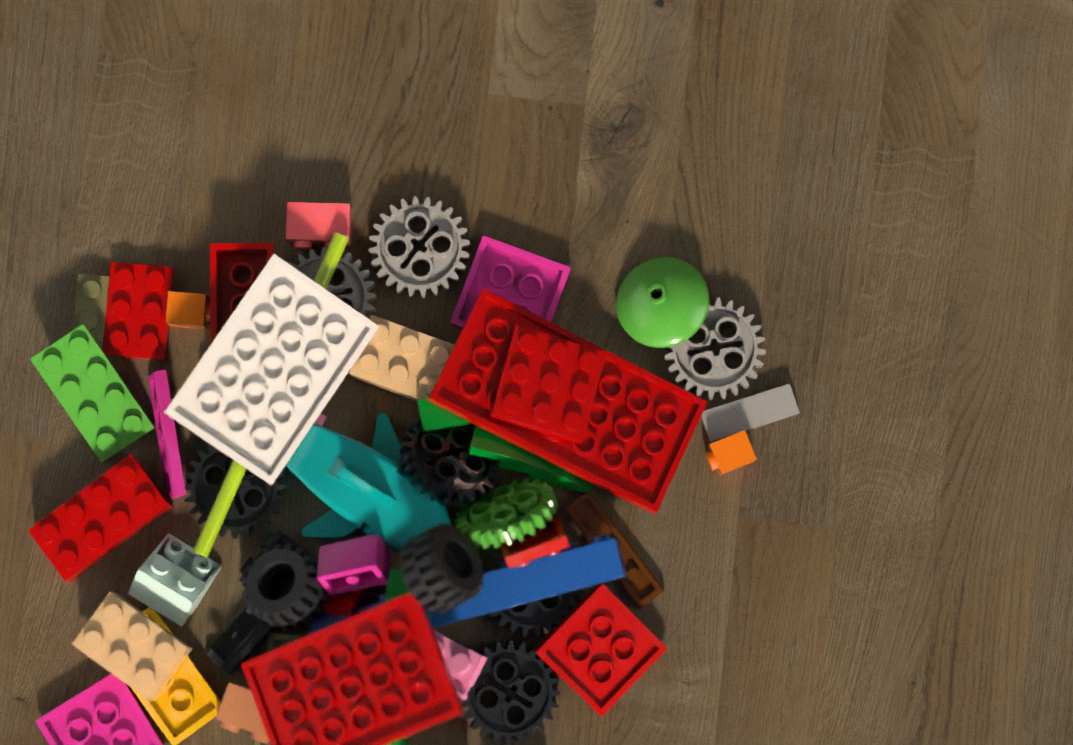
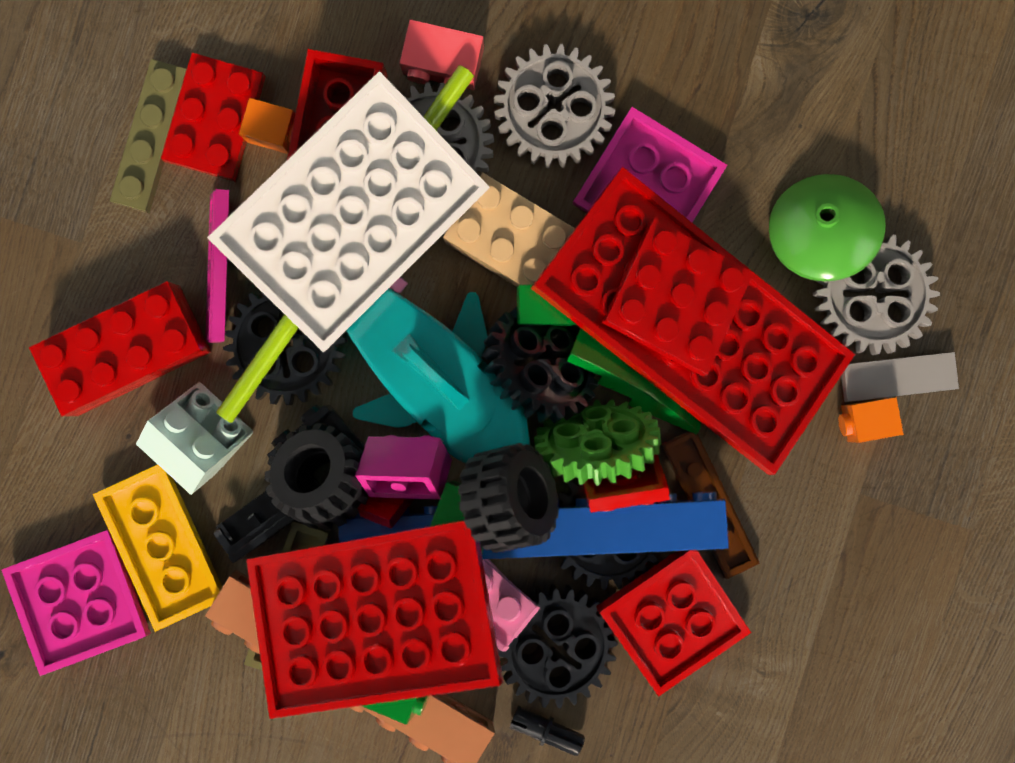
camera: 10 degrees right, 5 degrees up
(92, 392) = (137, 199): bright green plate -> none
(132, 646) = (124, 508): tan brick -> none

